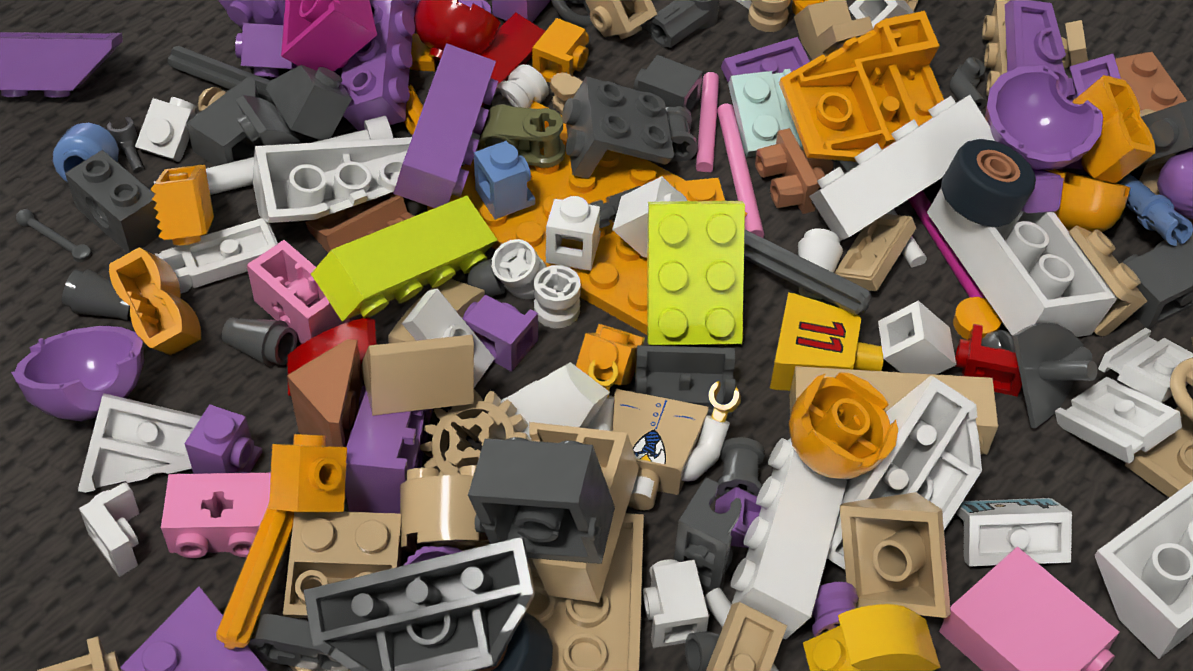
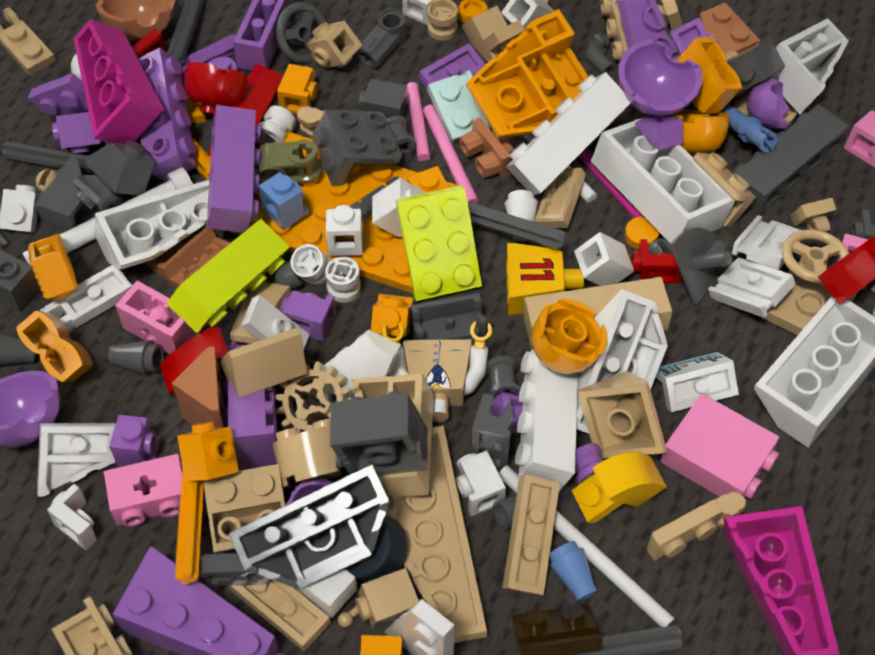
camera: 10 degrees left, 5 degrees up
(988, 182) = (631, 135): black wheel -> none

